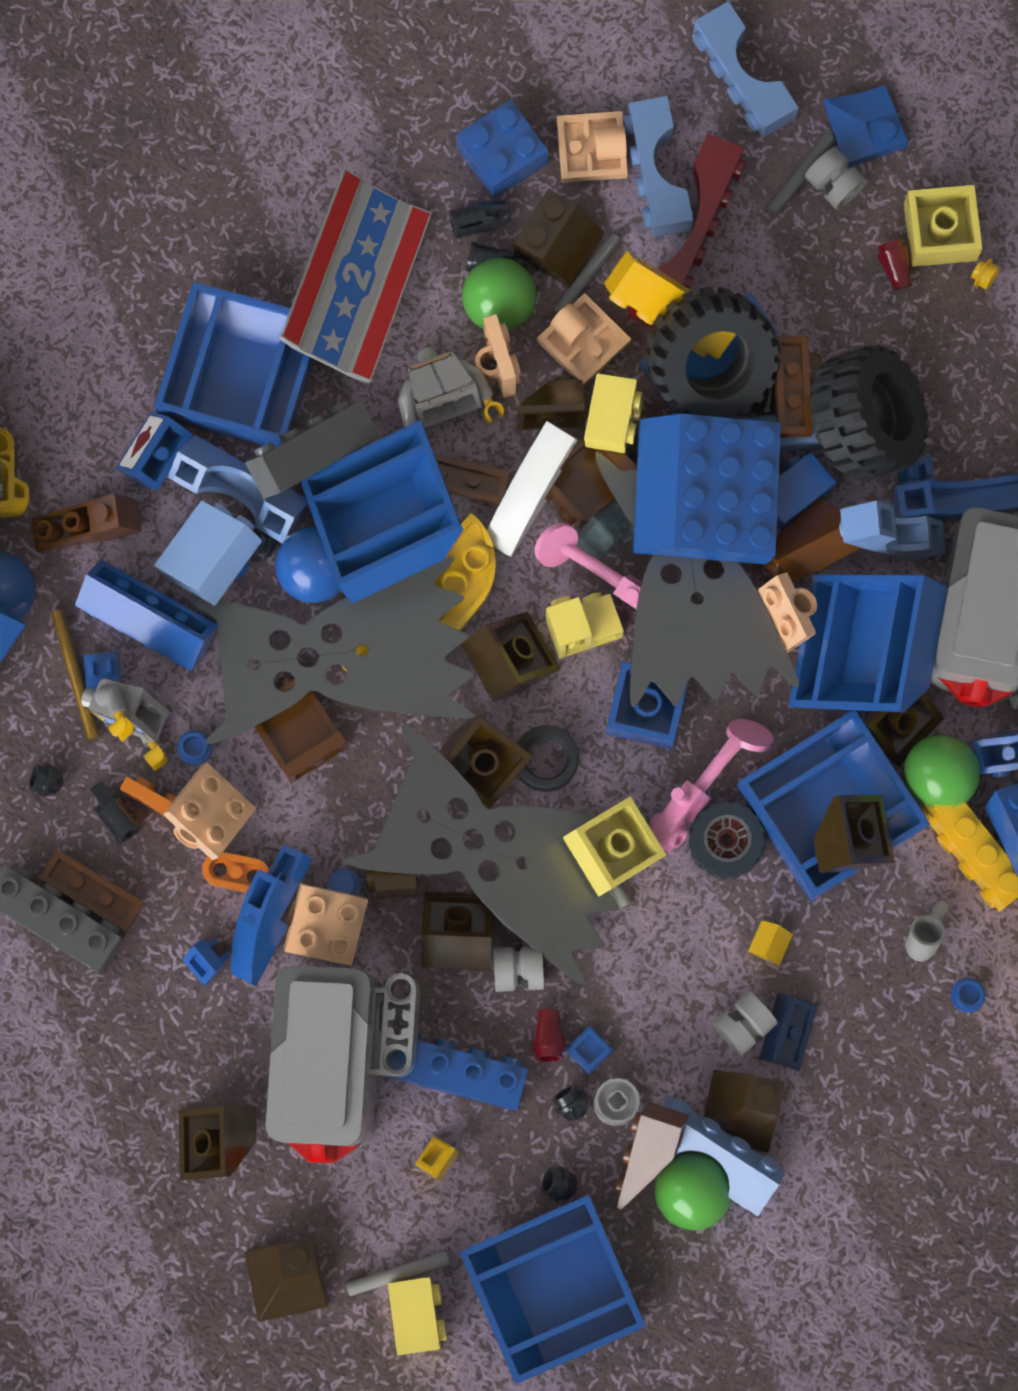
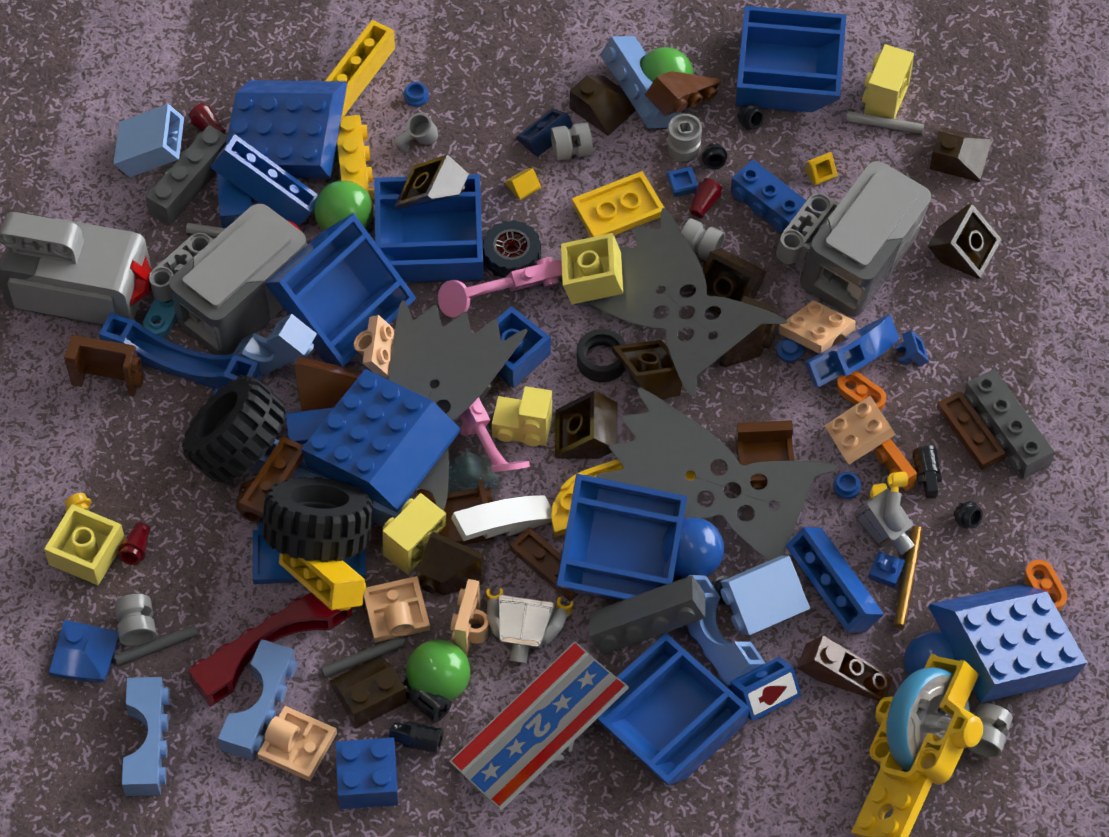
camera: 150 degrees left, 20 degrees down
(640, 967) = (618, 206): none -> yellow plate

